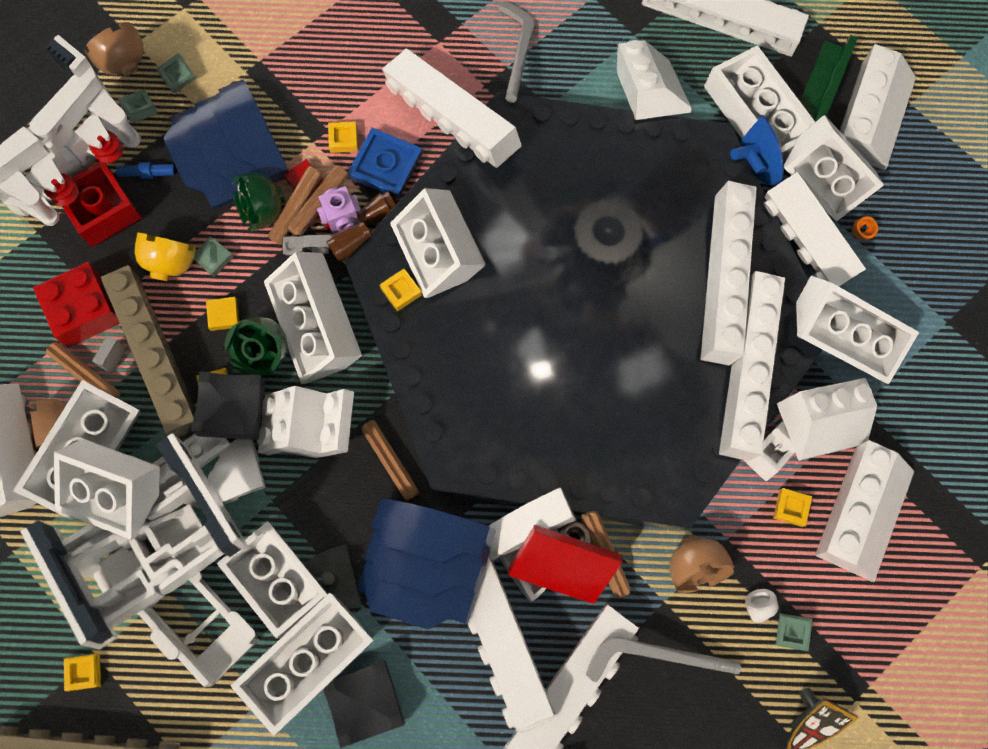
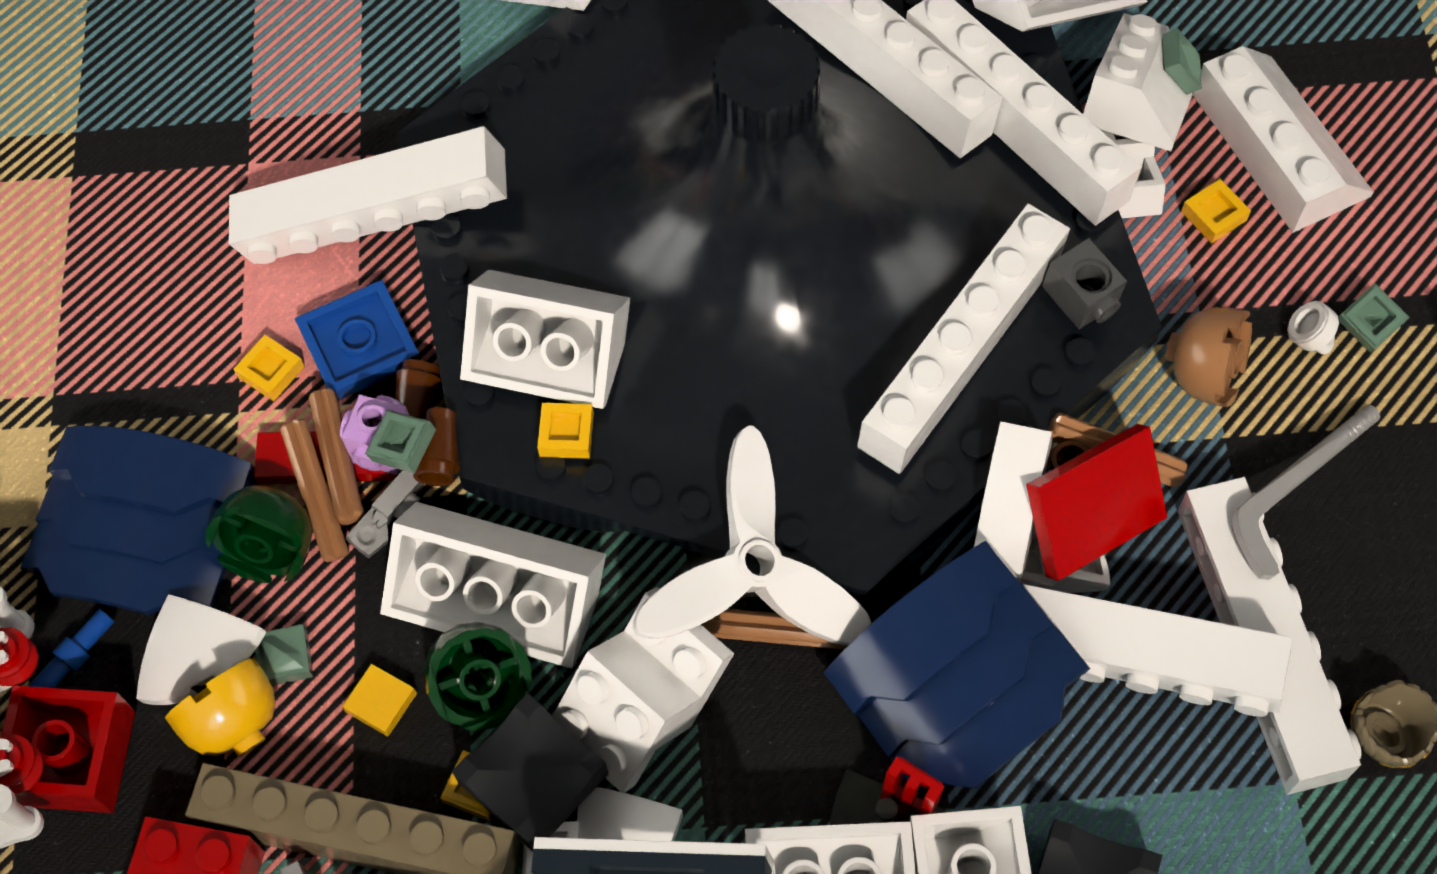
camera: 45 degrees left, 10 degrees down
(182, 217) = (191, 648): none -> white brick
(332, 223) = (400, 441): none -> sand green tile
(346, 583) = (907, 795): none -> red tile
(373, 418) = (785, 585): none -> white piece
(522, 49) = (359, 69): light grey piece -> none
(595, 436) = (962, 339): none -> white brick
(680, 461) = (1090, 267): none -> dark grey brick
(860, 428) = (1181, 61): none -> sand green tile

